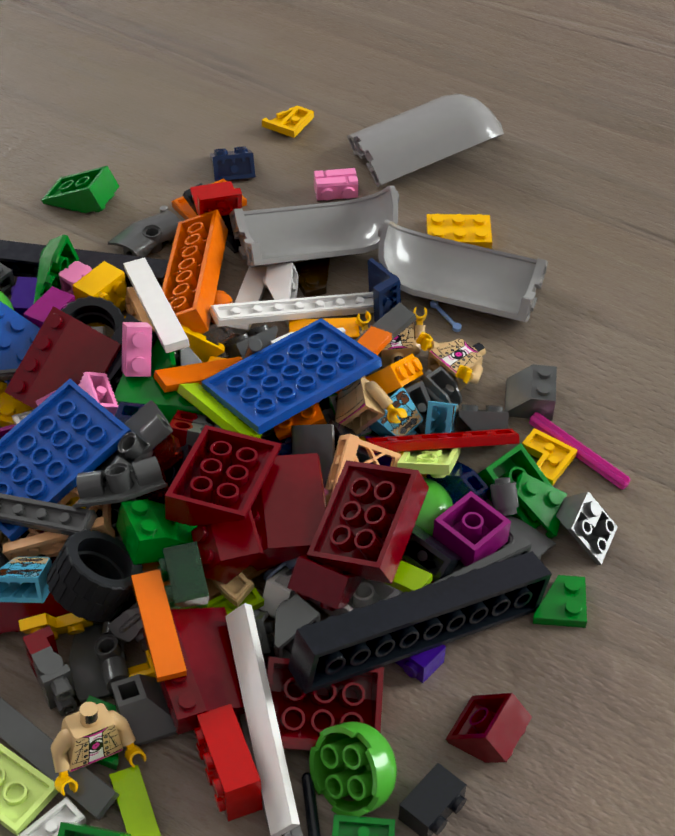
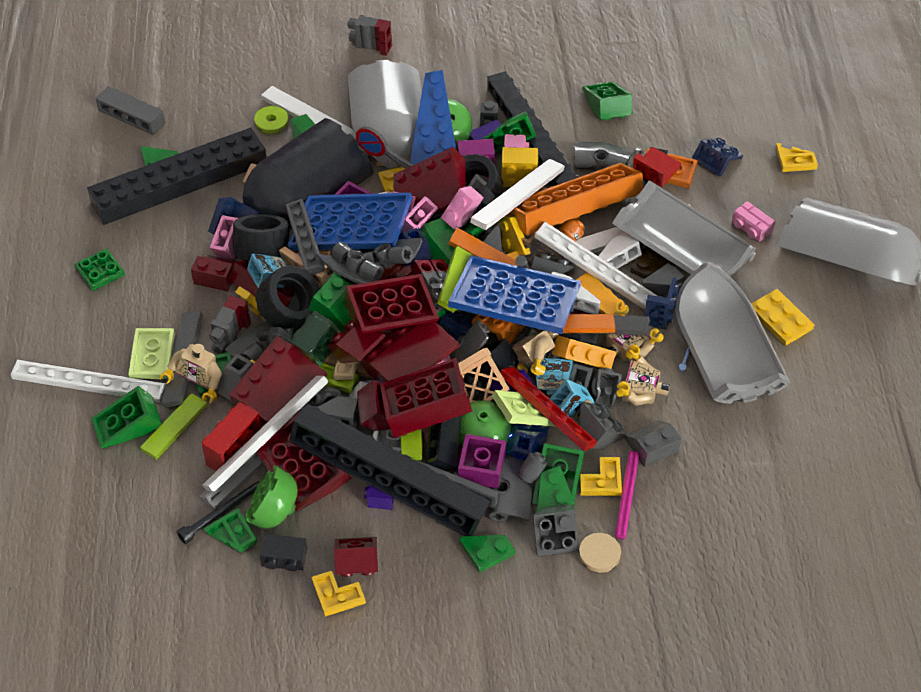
camera: 55 degrees right, 5 degrees up
(158, 626) = (272, 345): orange tile -> none
(349, 276) = (660, 281): none -> dark grey slope
(531, 786) = (336, 599): none -> yellow plate
(634, 510) = (599, 552): none -> tan tile

